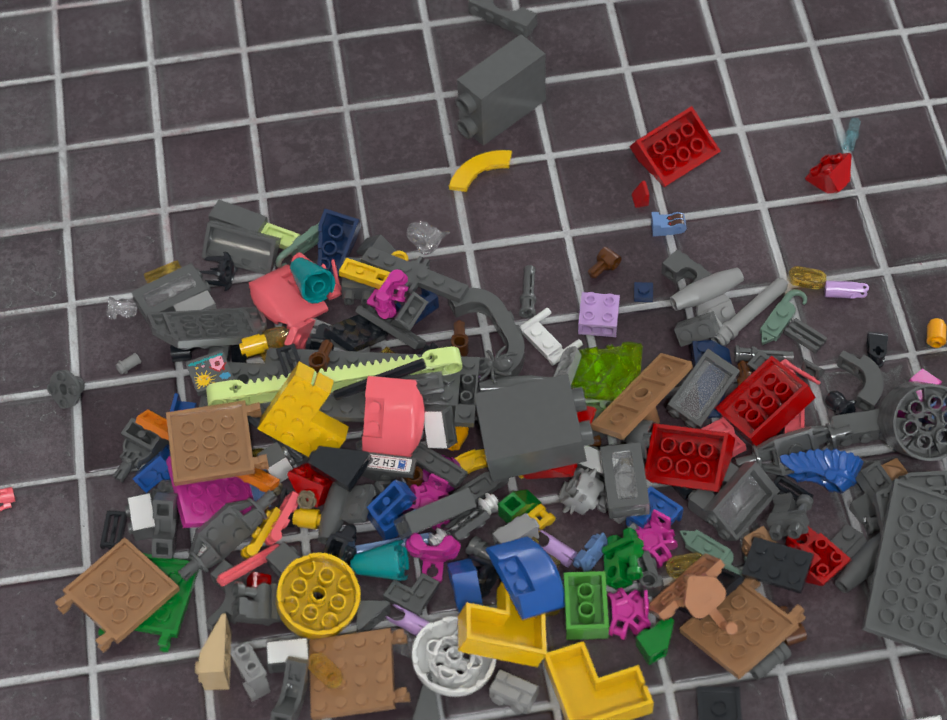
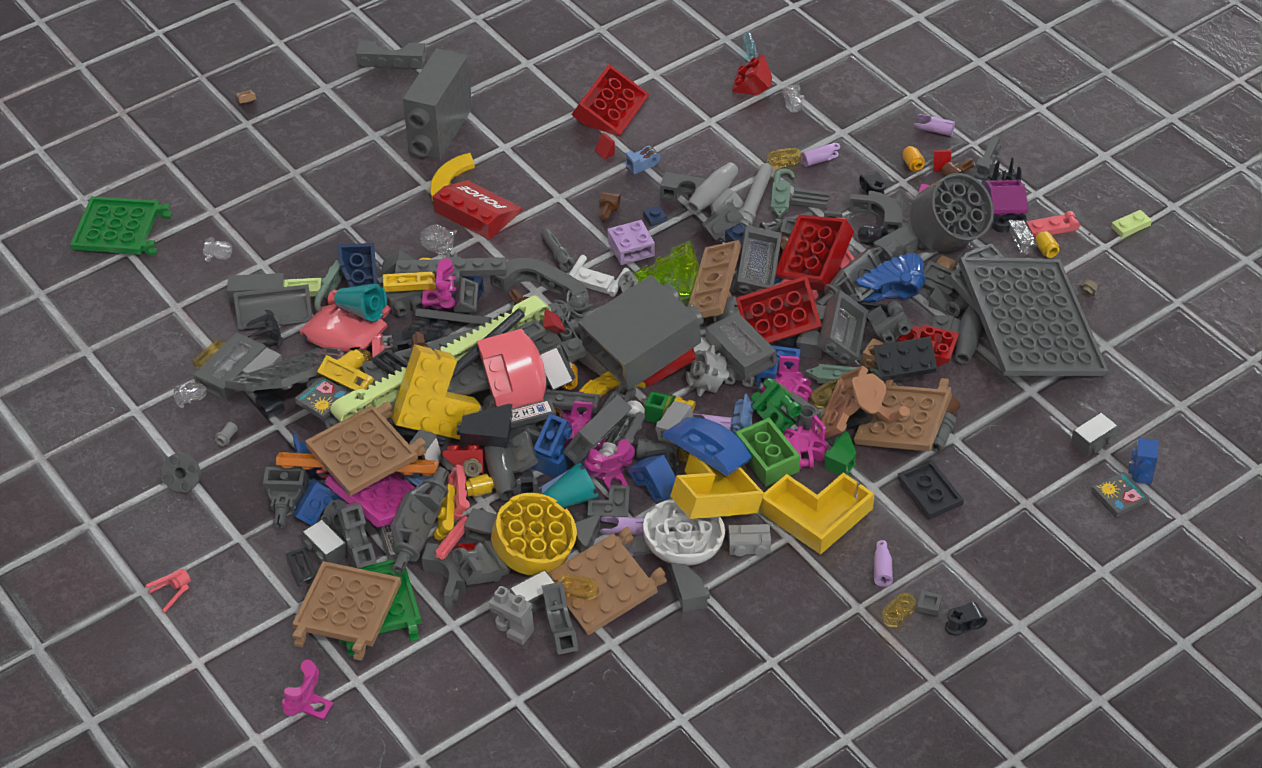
camera: 30 degrees left, 10 degrees down
(35, 666) = (300, 698): none -> dark pink piece
(162, 104) = (118, 225): none -> green plate
(215, 657) = (476, 620): tan slope -> none
(228, 165) = (218, 249): none -> clear animal
(238, 358) = (344, 374): none -> yellow plate
(348, 8) = (246, 96): none -> medium nougat tile
(456, 380) = (552, 322): none -> red slope
(482, 213) = (475, 208): none -> red slope
(855, 216) = (793, 98): none -> clear animal

